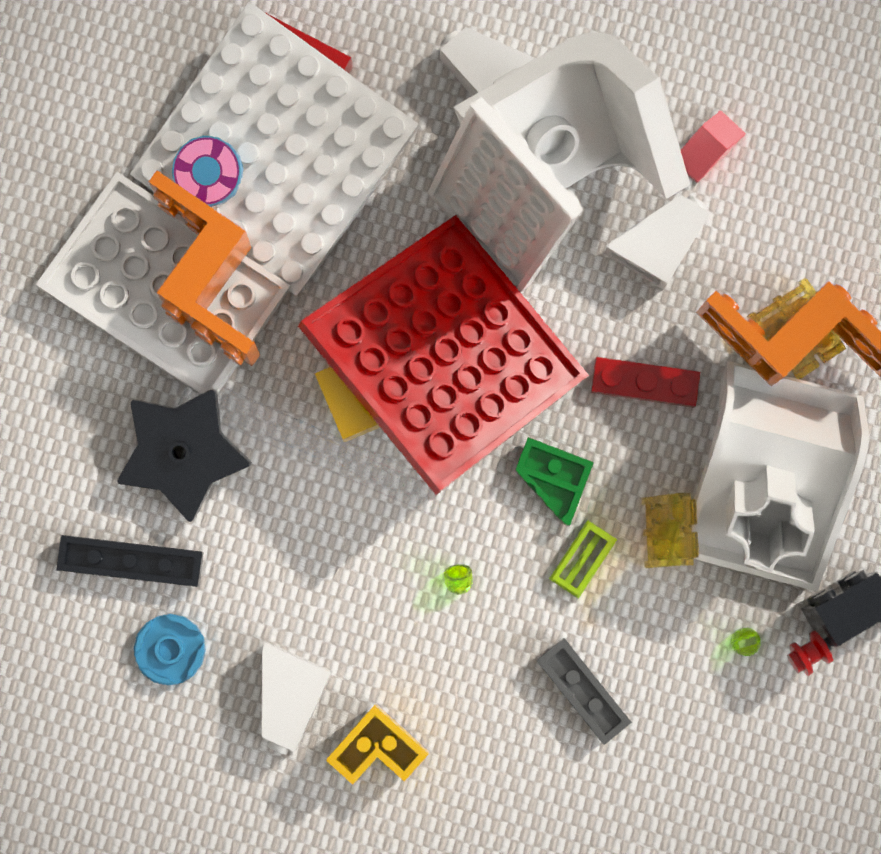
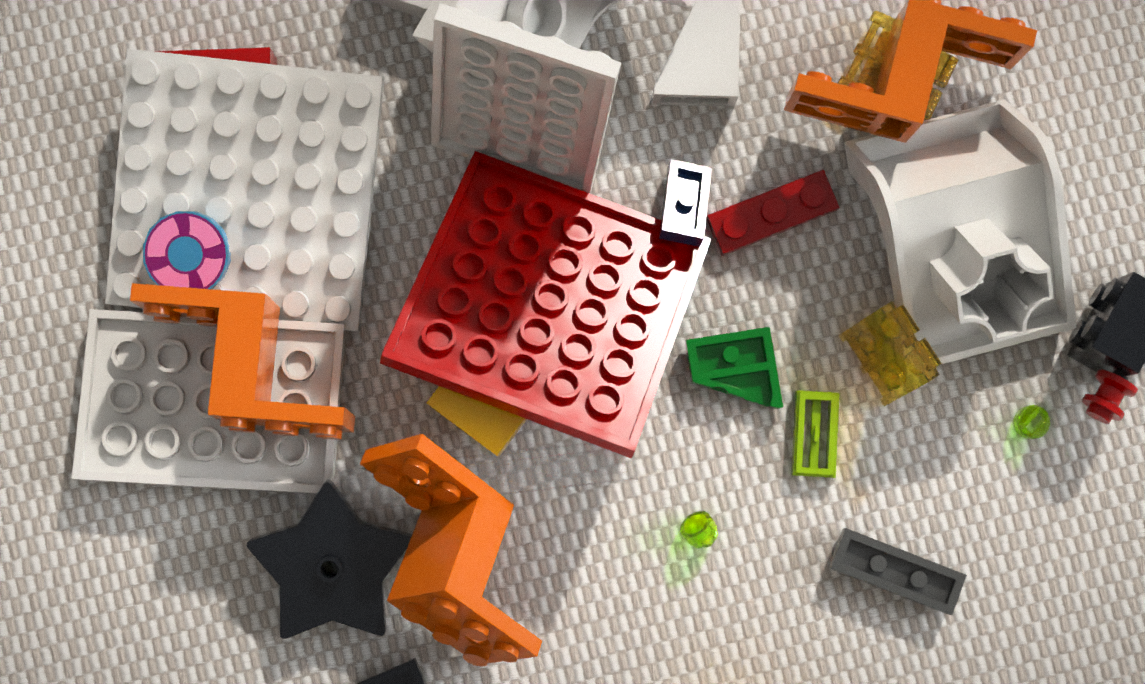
camera: 30 degrees left, 0 degrees up
(271, 488) = (450, 551): none -> orange bracket
(584, 338) = (685, 203): none -> plate

